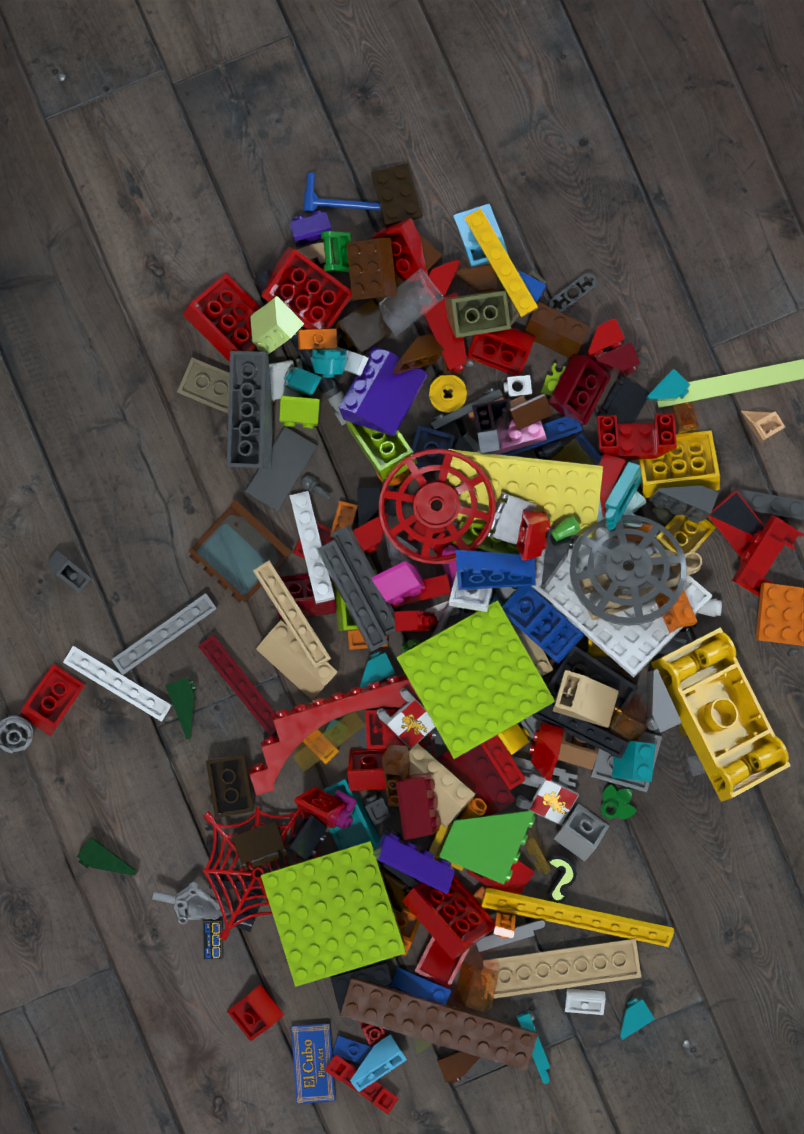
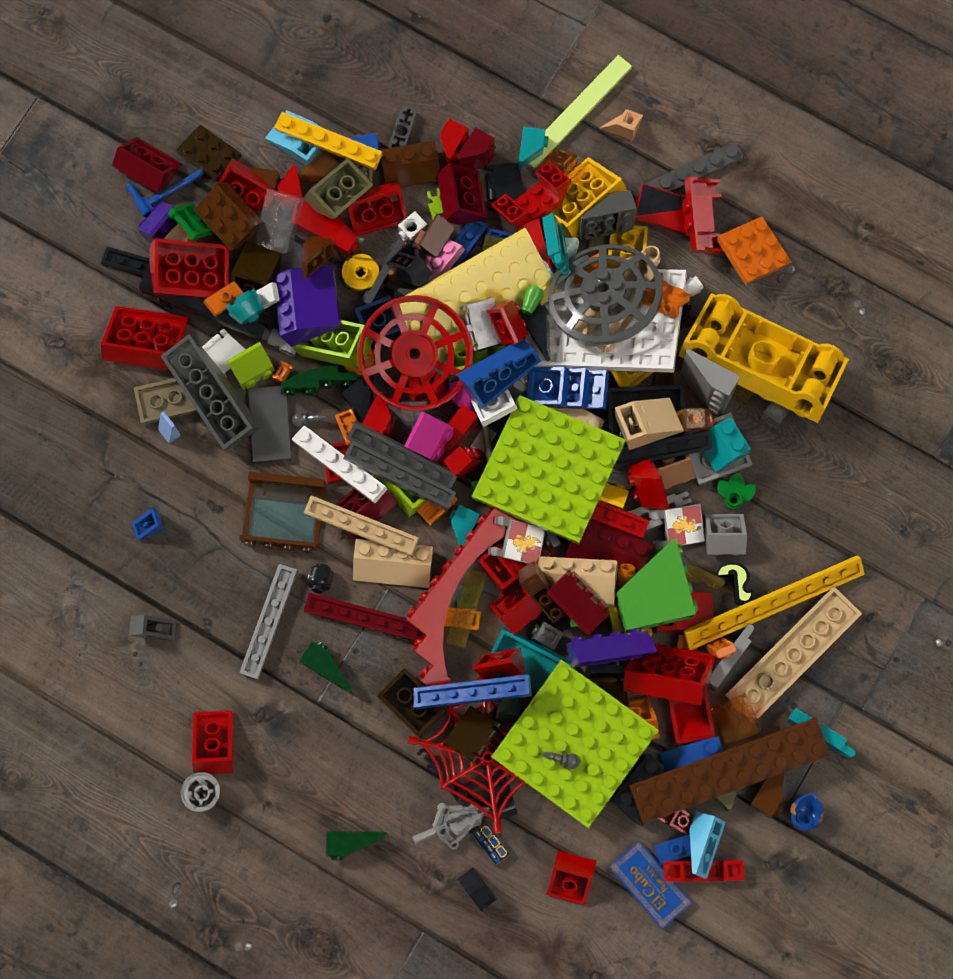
camera: 30 degrees left, 10 degrees down
(117, 683) = (258, 689): white plate -> none
(123, 483) = (148, 524): none -> blue slope
(175, 968) = (477, 889): none -> black slope
(195, 413) = (167, 428): none -> light blue slope
(230, 629) = (320, 578): none -> black head
(262, 241) = (125, 261): none -> black tile
(273, 325) = (180, 309): yellowish green slope -> none
(281, 816) = (472, 692): none -> blue plate
(301, 381) = (235, 340): teal slope -> none
(318, 925) = (571, 760): none -> dark grey bar
(322, 433) = (282, 372): none -> orange bush
(337, 166) = (146, 164): none -> dark red slope
(339, 458) = (310, 381): none -> dark green slope
(345, 818) = (526, 659): magenta plate -> none
(476, 1099) = (807, 812): none -> blue hair
(585, 1001) = (832, 668): white slope -> none
(635, 1017) = (882, 650): teal slope -> none

